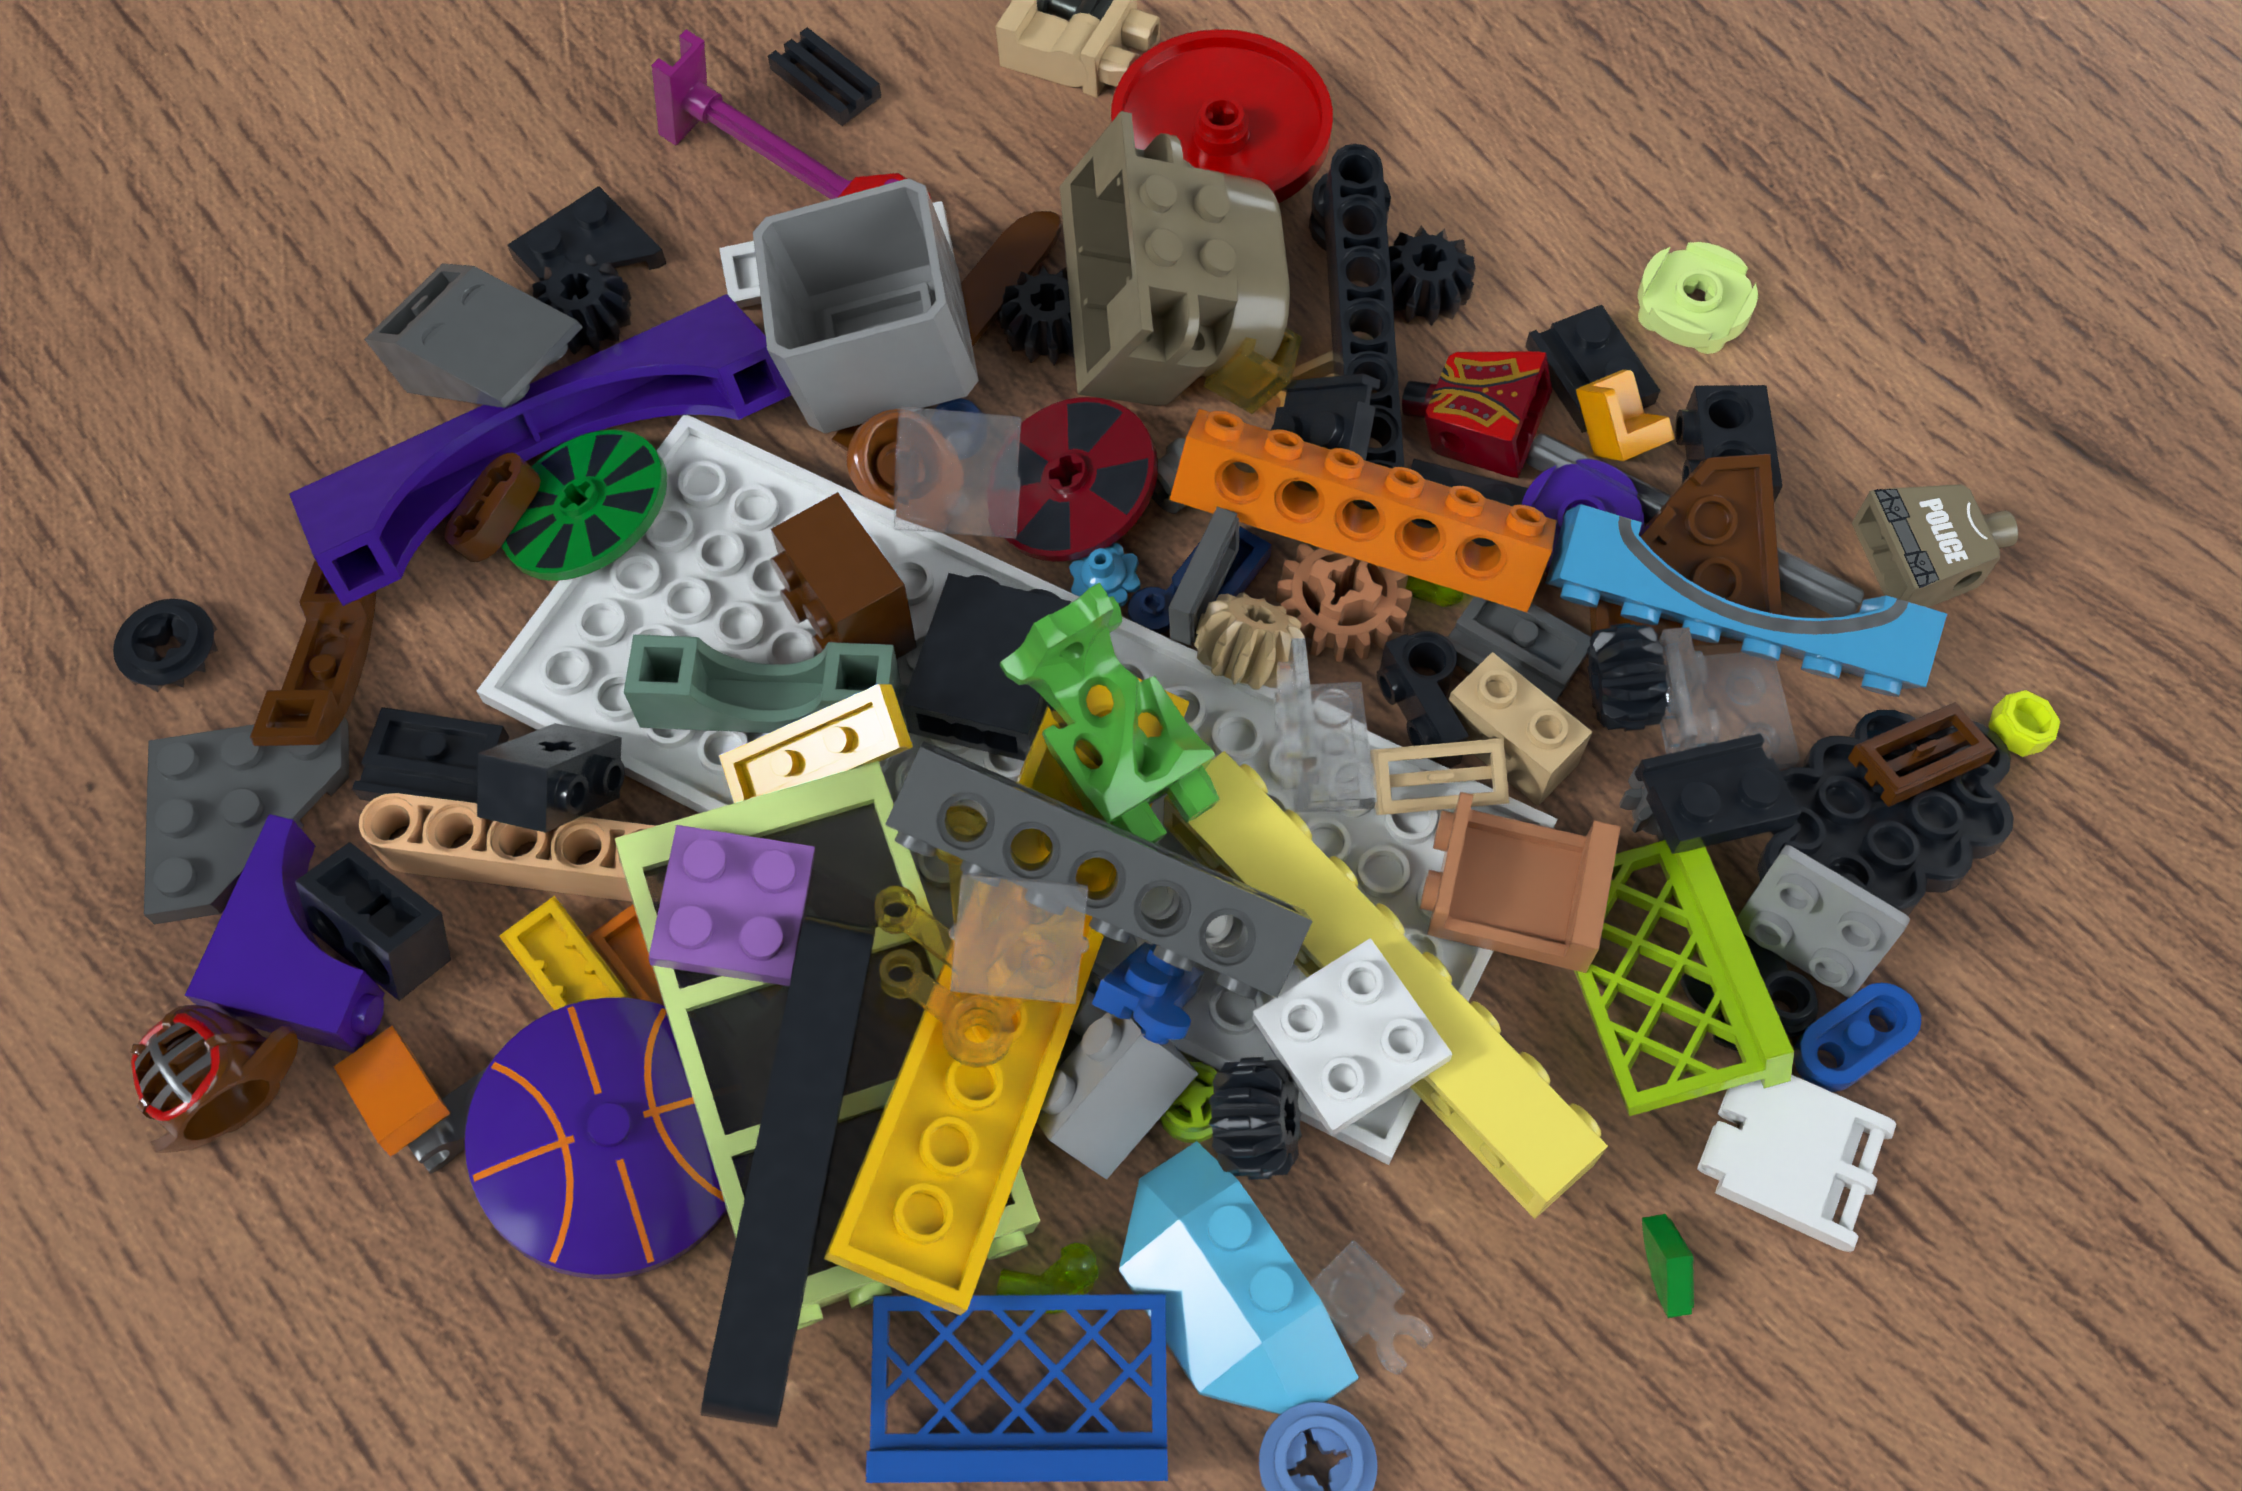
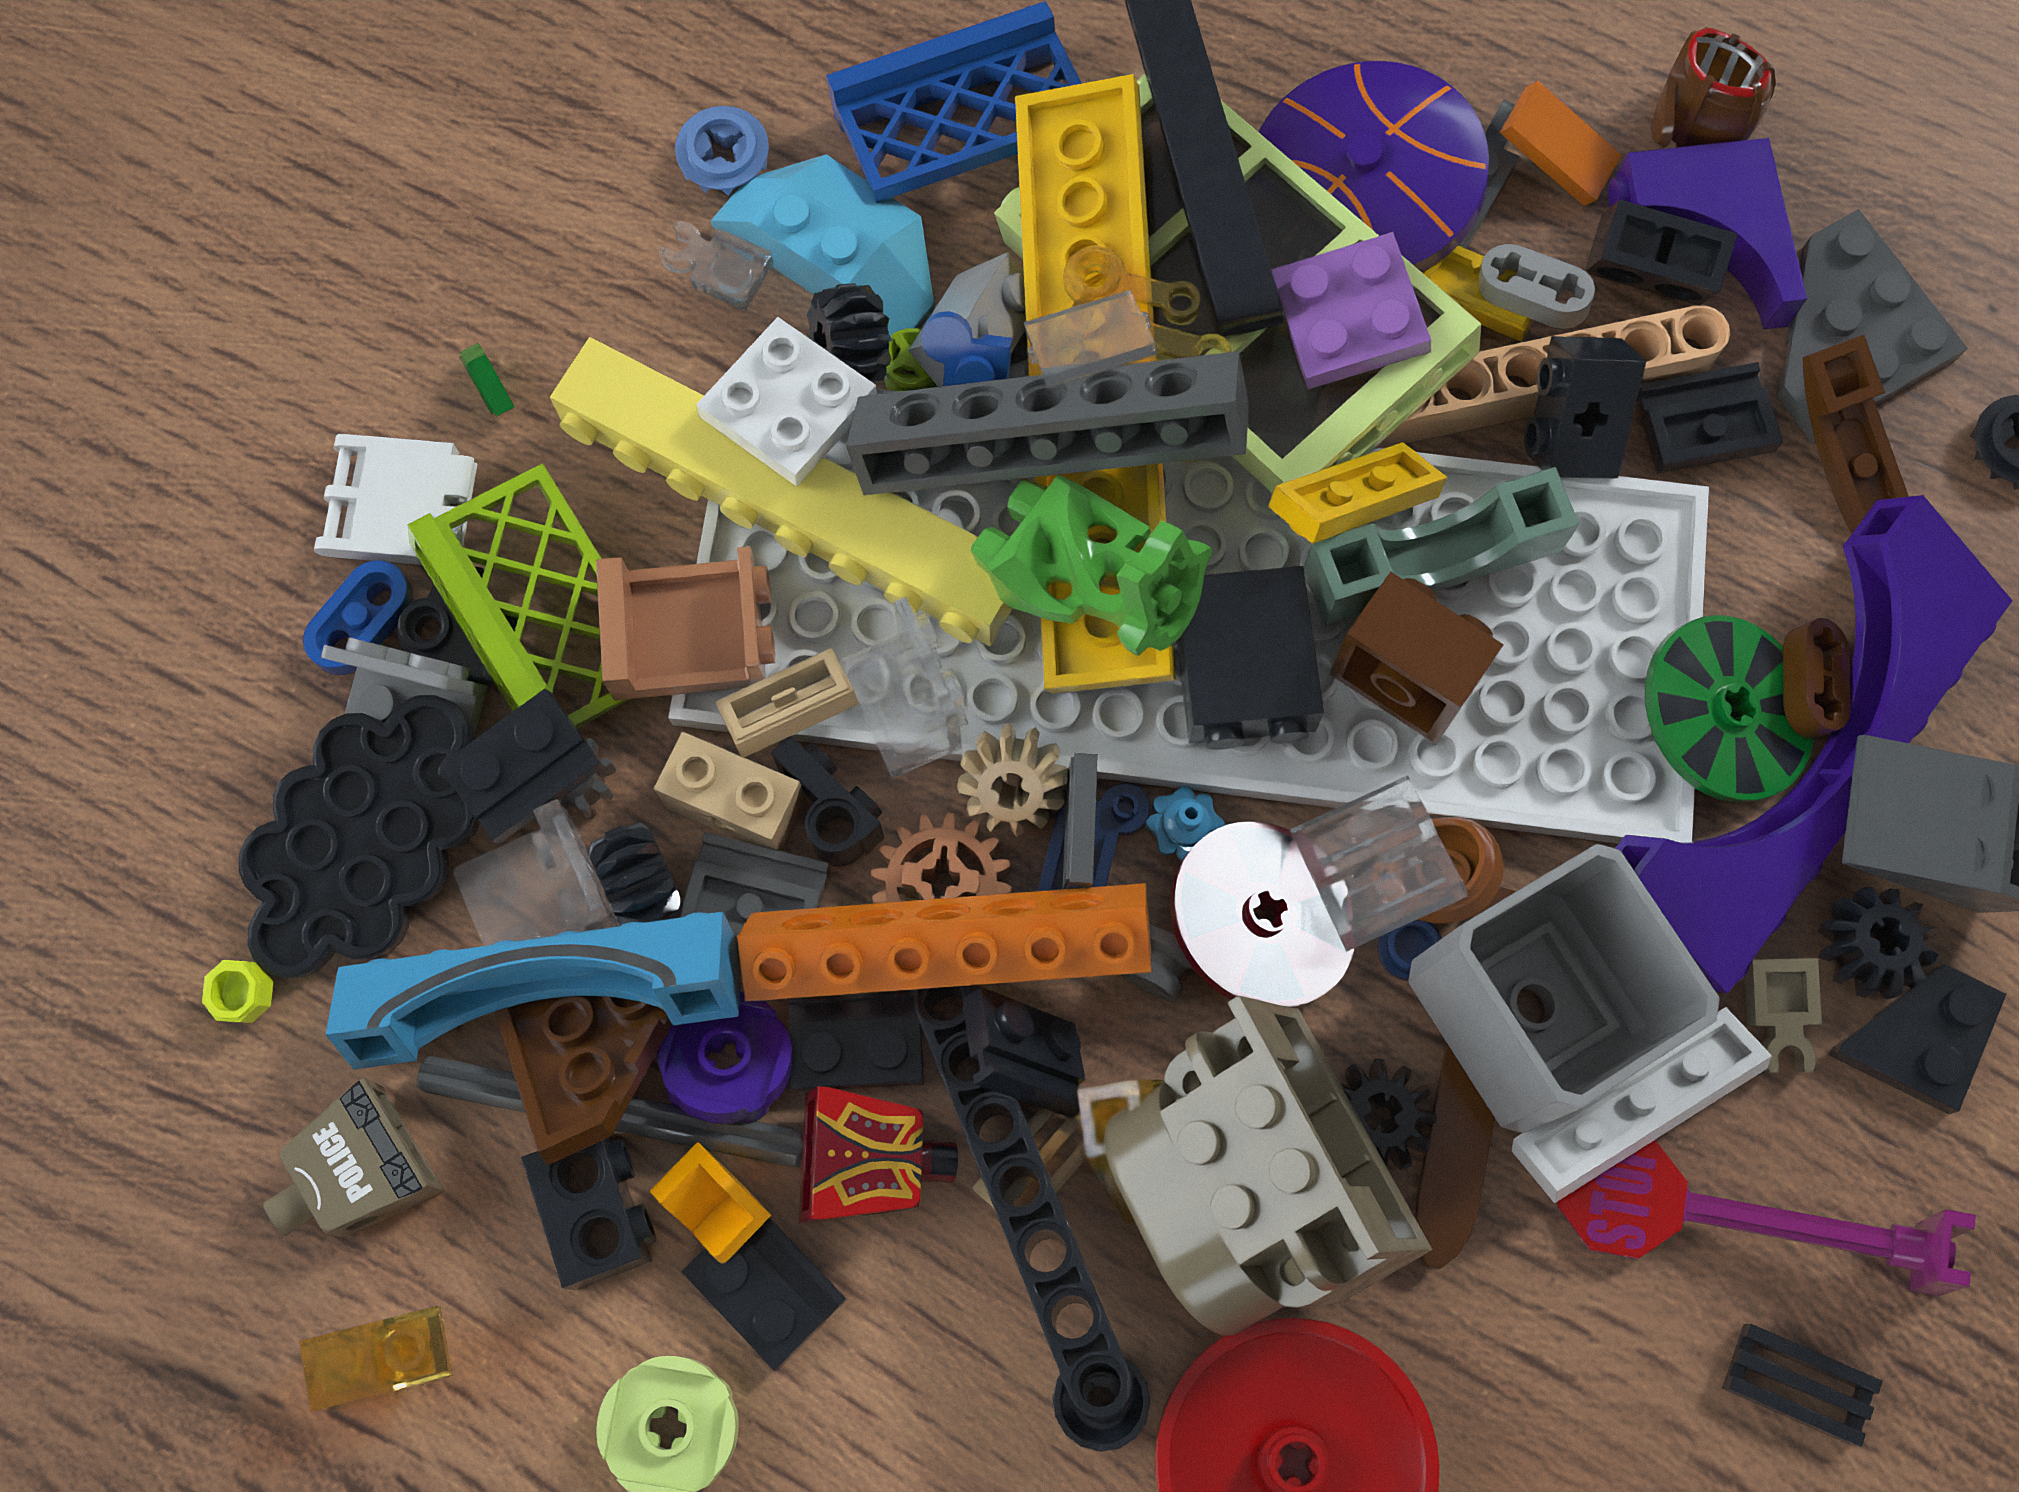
camera: 160 degrees right, 10 degrees up
(506, 933) = (1536, 286): none -> light grey beam
(682, 288) = (1784, 998): none -> dark tan plate
(1070, 1275) = (968, 199): clear neon green arm -> none
(1430, 275) = (960, 1324): black gear -> none
(1886, 773) = (372, 860): reddish brown tile -> none
(1935, 394) = (375, 1360): none -> clear yellow slope

